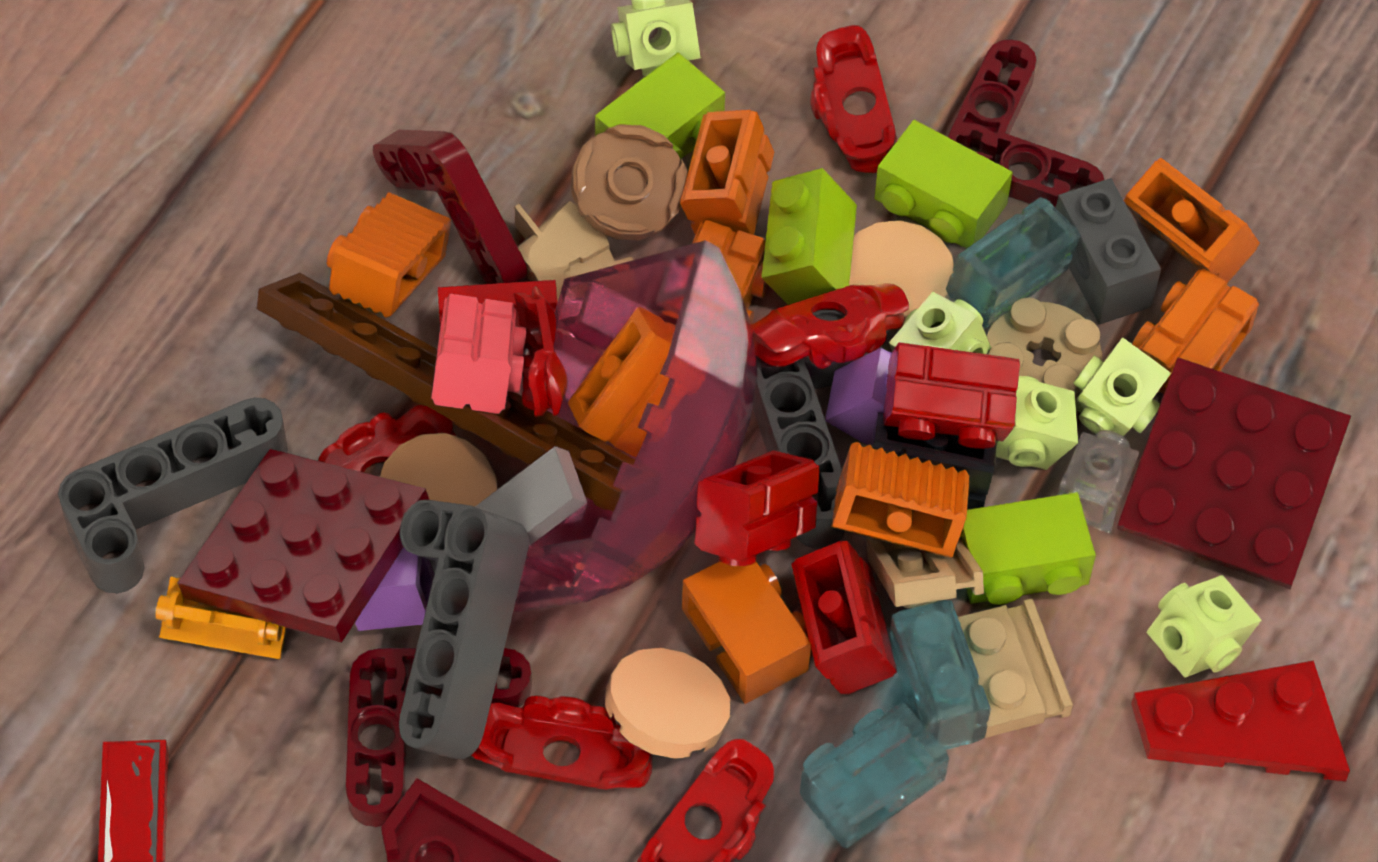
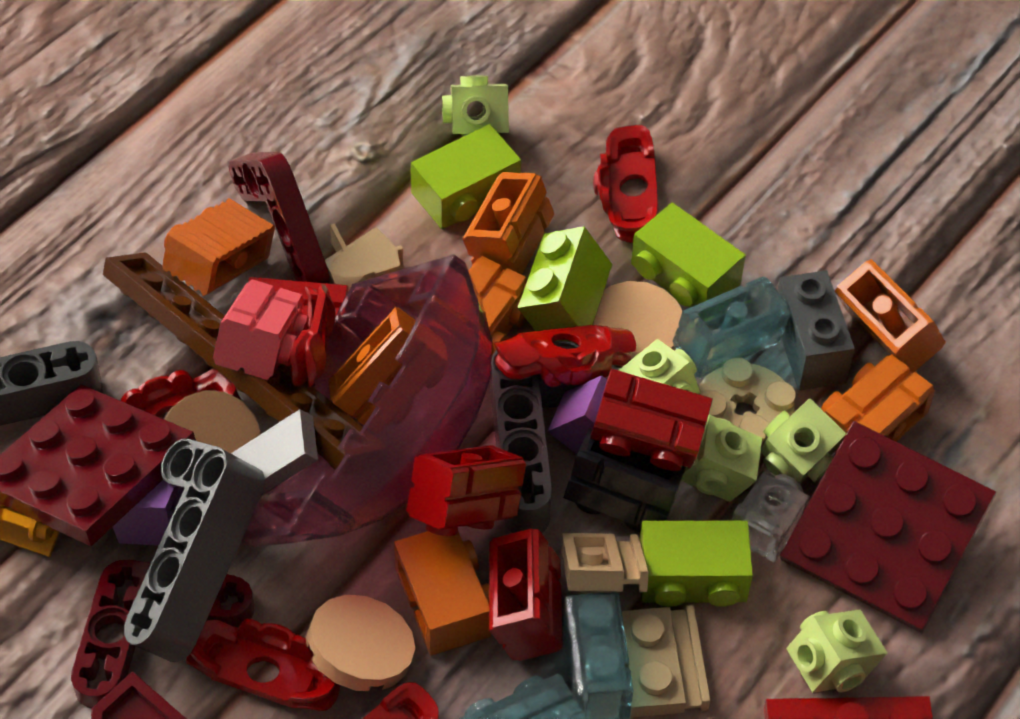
camera: 10 degrees right, 5 degrees down
(628, 182) = (424, 216): medium nougat tile -> none
(901, 500) = (591, 502): orange brick -> none
(993, 136) = (741, 227): dark red beam -> none

